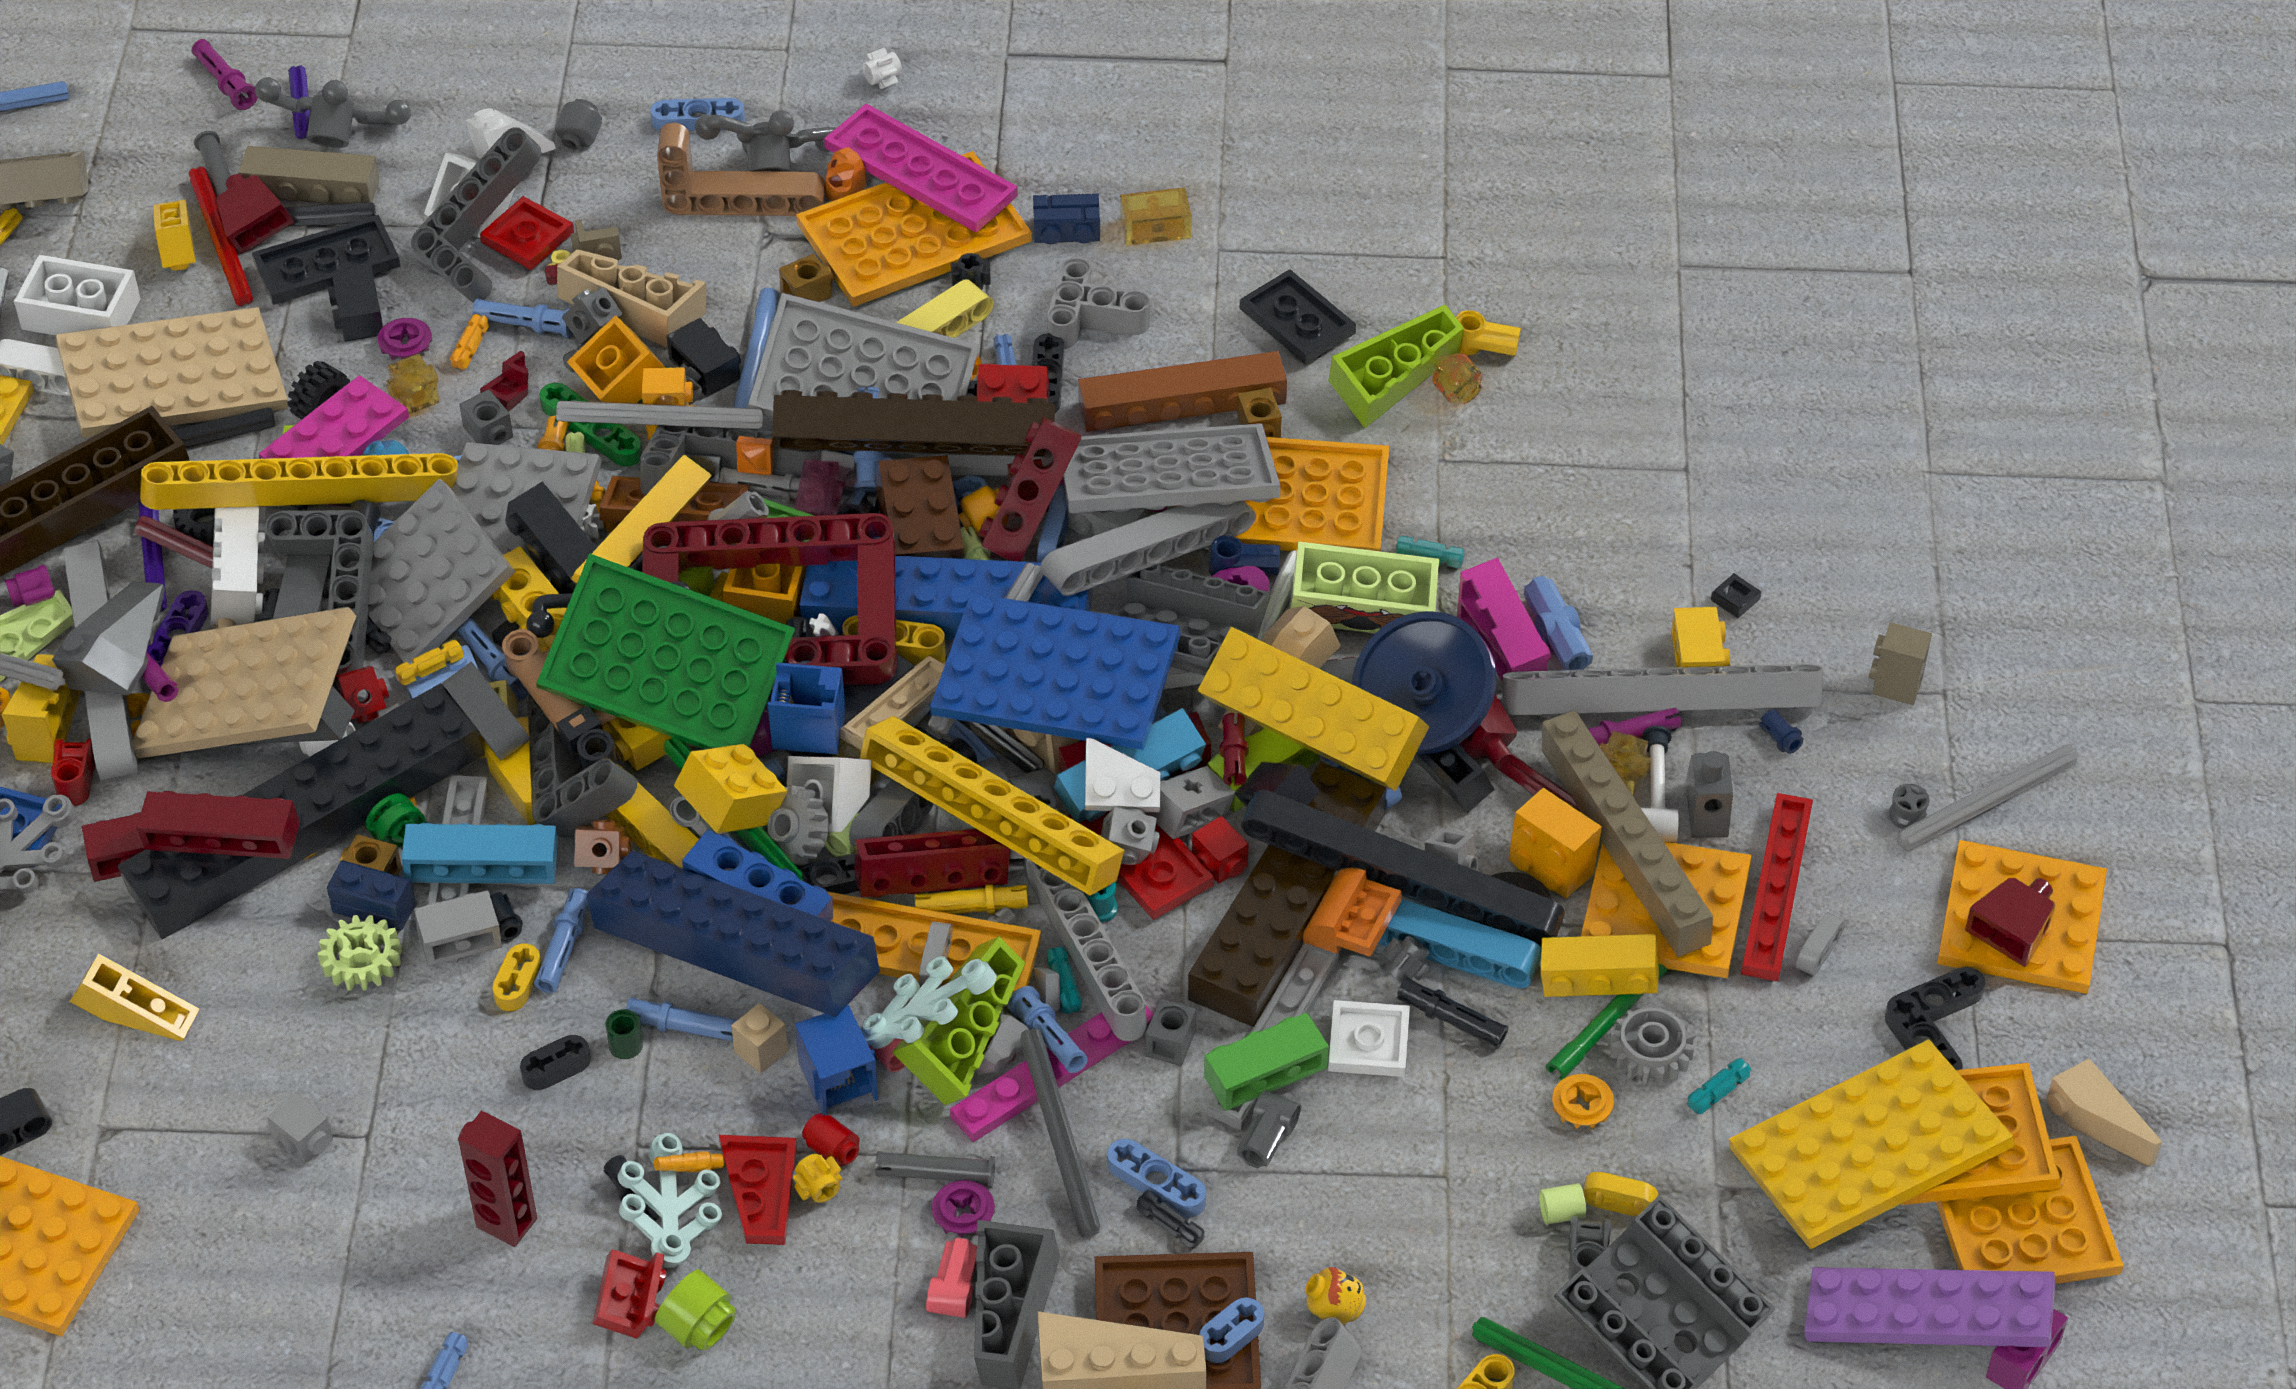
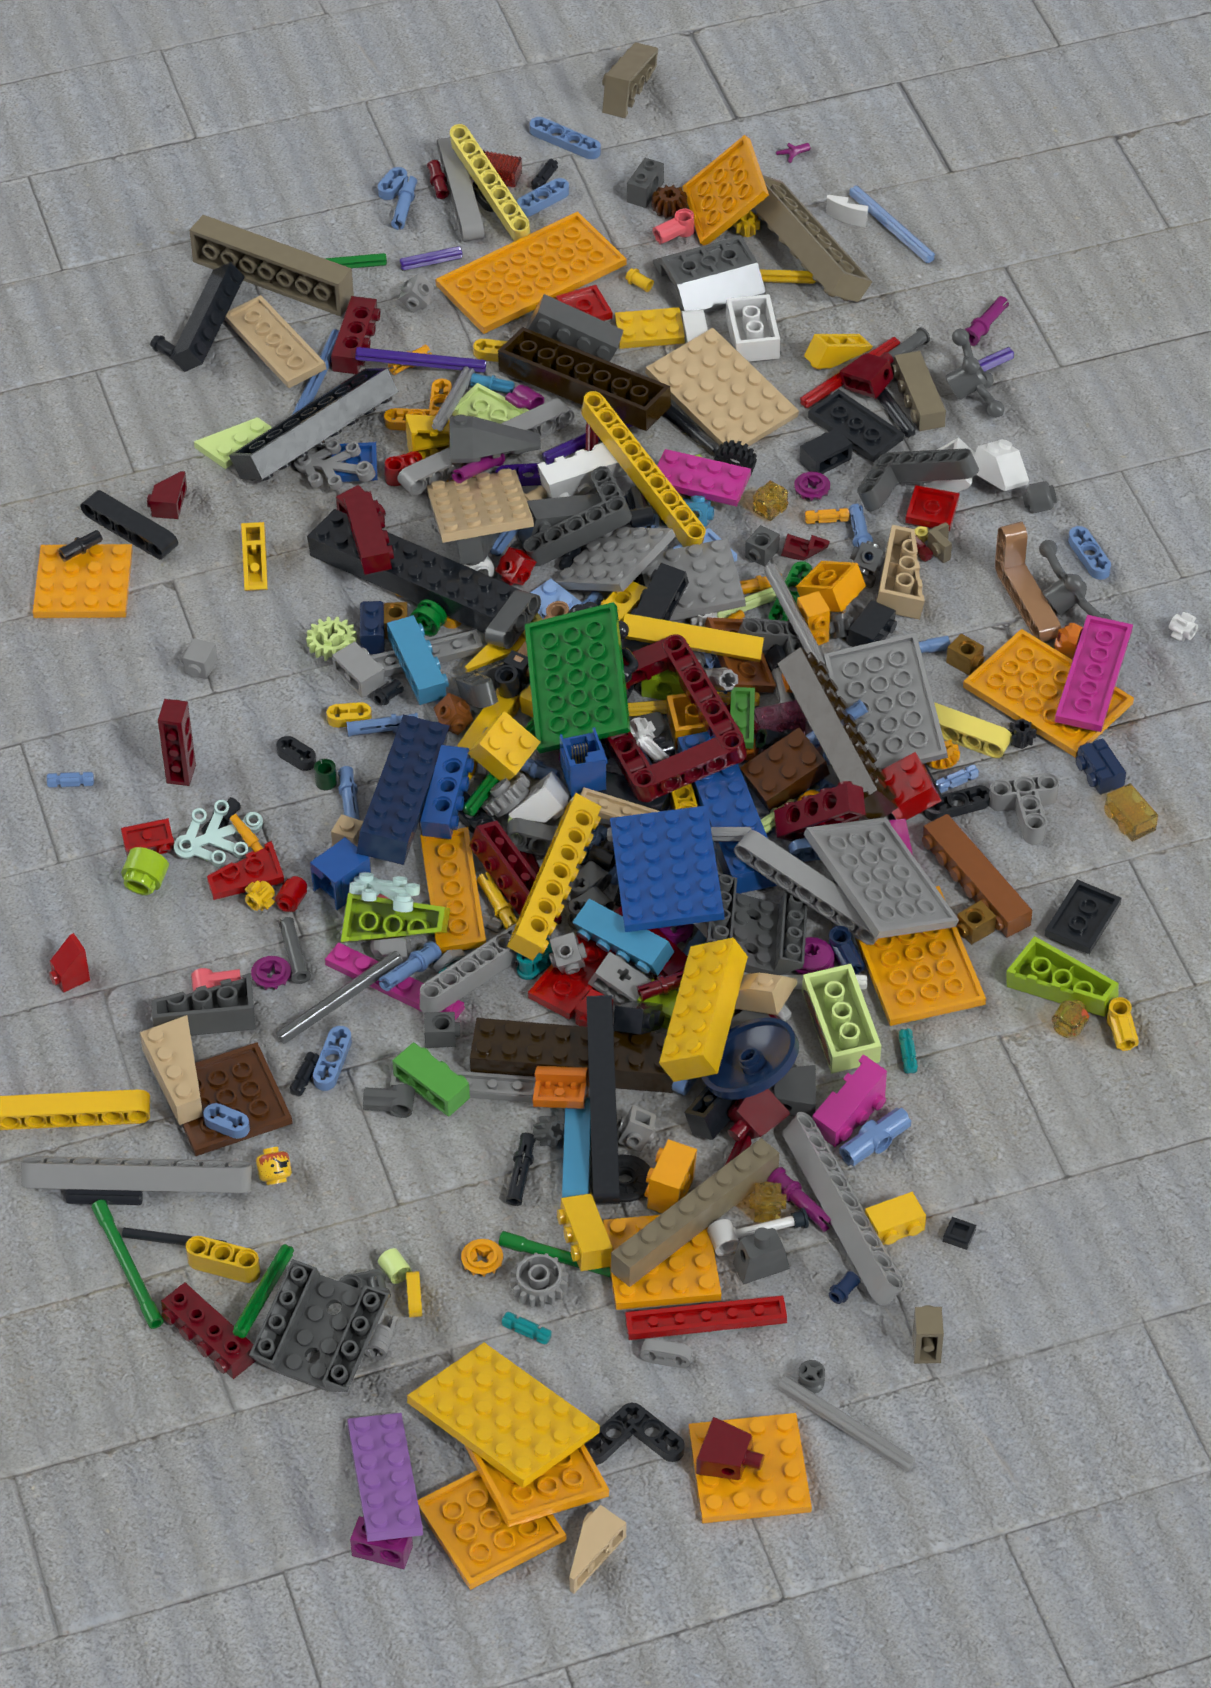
camera: 70 degrees right, 0 degrees up
(428, 662) = (551, 587): yellow axle -> none
(937, 945) = (439, 892): light grey beam -> none
(1118, 781) = (597, 929): white wing -> none
(1369, 1038) = (481, 1131): white plate -> none

